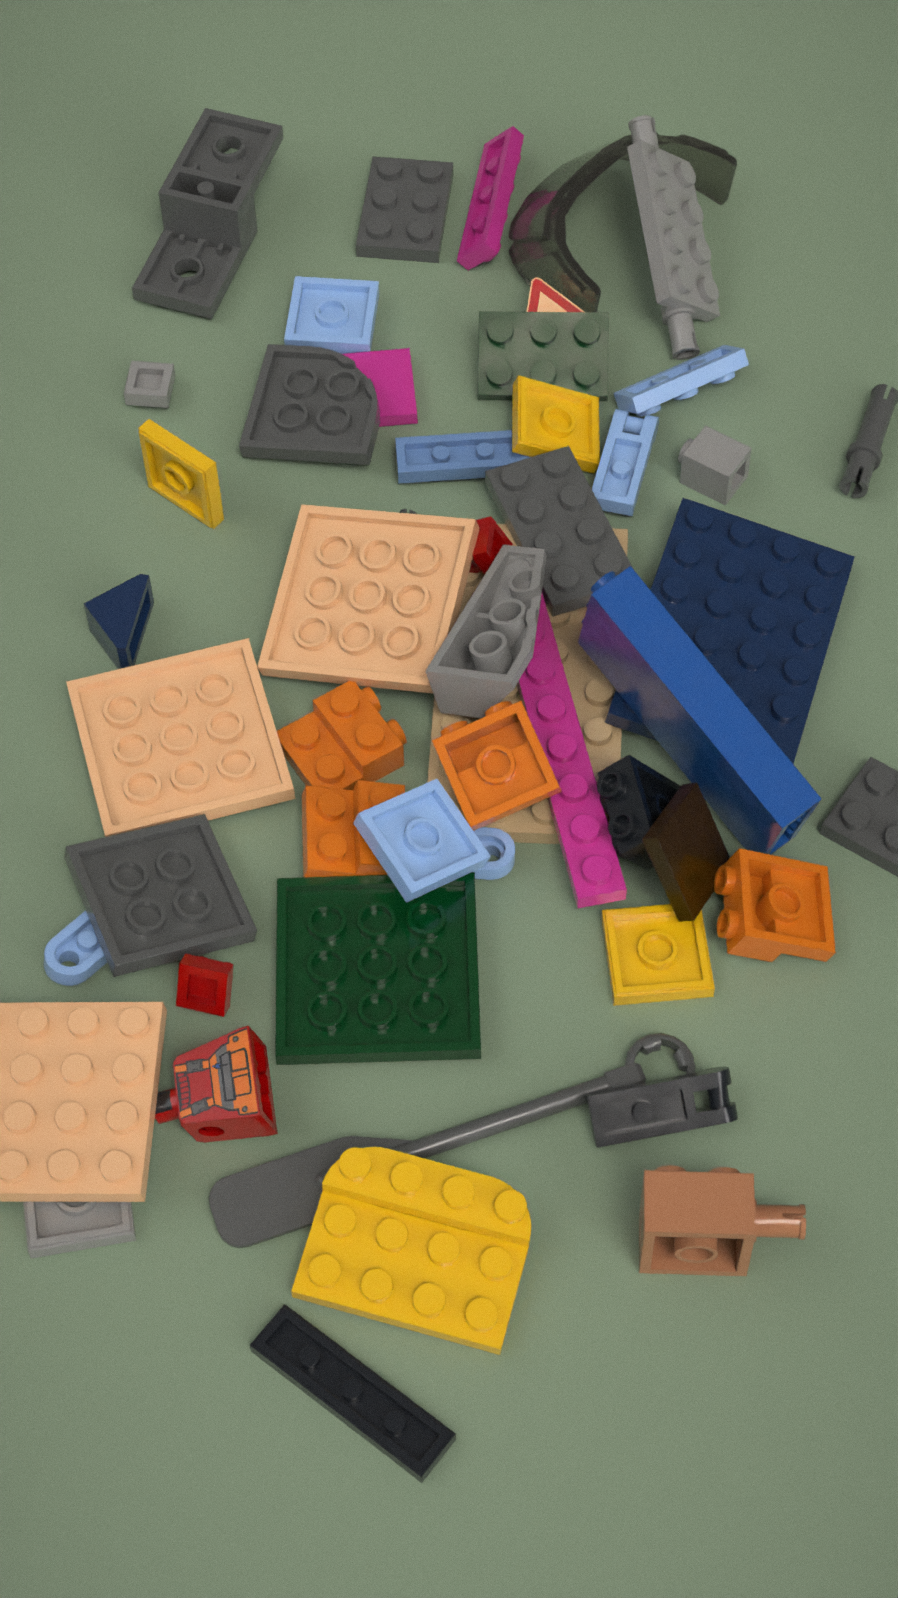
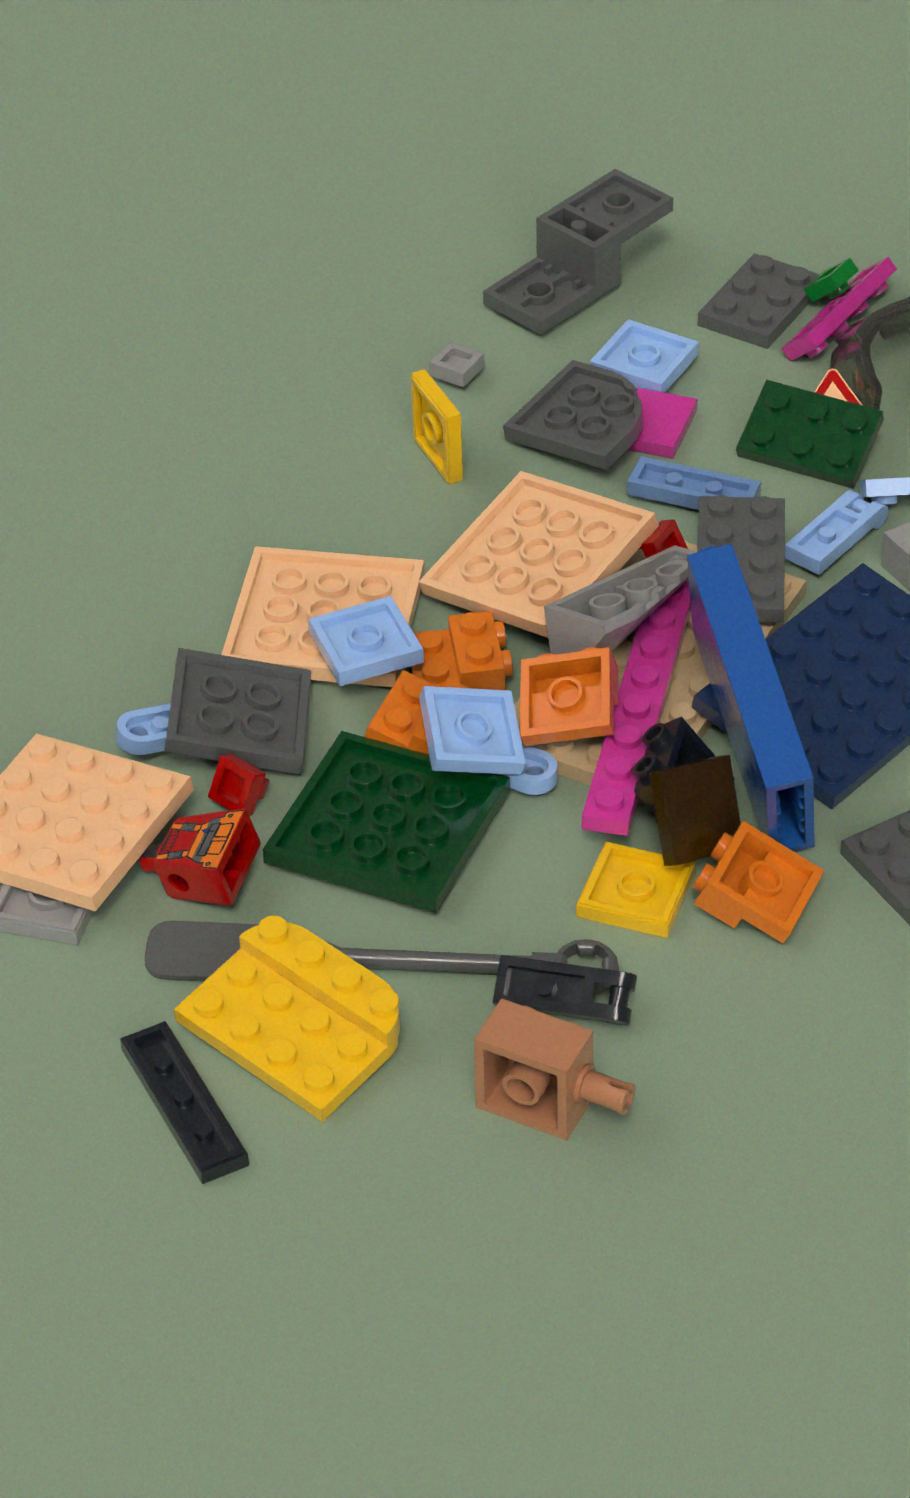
camera: 25 degrees right, 15 degrees down
(121, 618) = (332, 516): dark blue slope -> none
(250, 764) = (365, 640): none -> light blue plate
(468, 168) = (832, 281): none -> green plate
(553, 418) = (793, 476): yellow tile -> none

